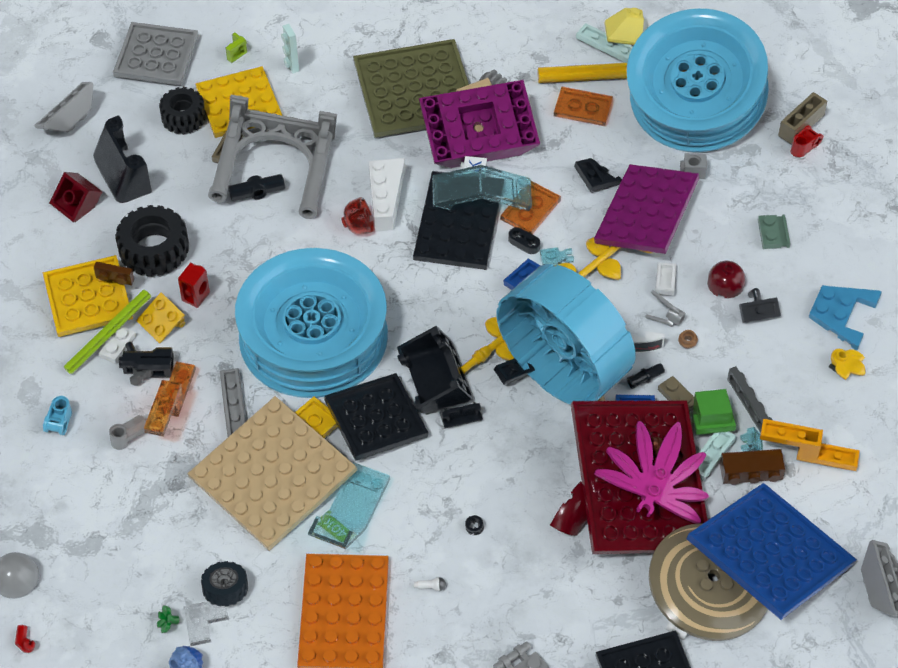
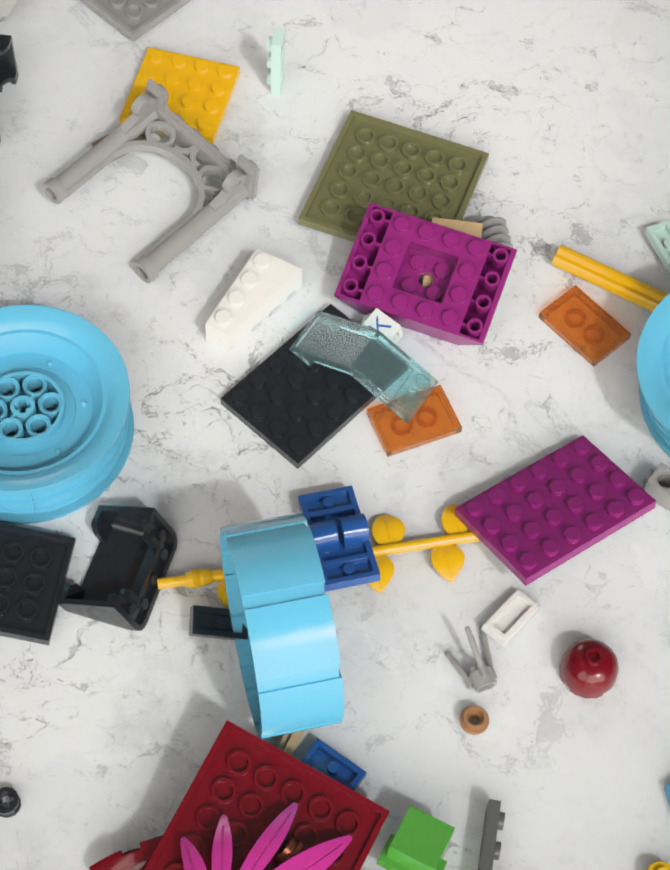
camera: 30 degrees right, 5 degrees up
(186, 120) = (90, 74): black tyre -> none
(237, 48) = (227, 30): lime bracket -> none
(256, 187) = (111, 208): black piece -> none
(358, 217) = (192, 310): clear red cylinder -> none
(461, 415) = (108, 642): black hinge -> none
(524, 240) = (366, 461): black beam -> none
(554, 257) = (391, 501): clear light blue plate -> none
(594, 175) = (527, 425): black wing -> none
(645, 375) = (380, 736): black axle -> none
(651, 342) = (418, 693): slope -> none
(674, 390) = (400, 788): dark tan plate -> none
(759, 308) = (600, 736): black plate -> none

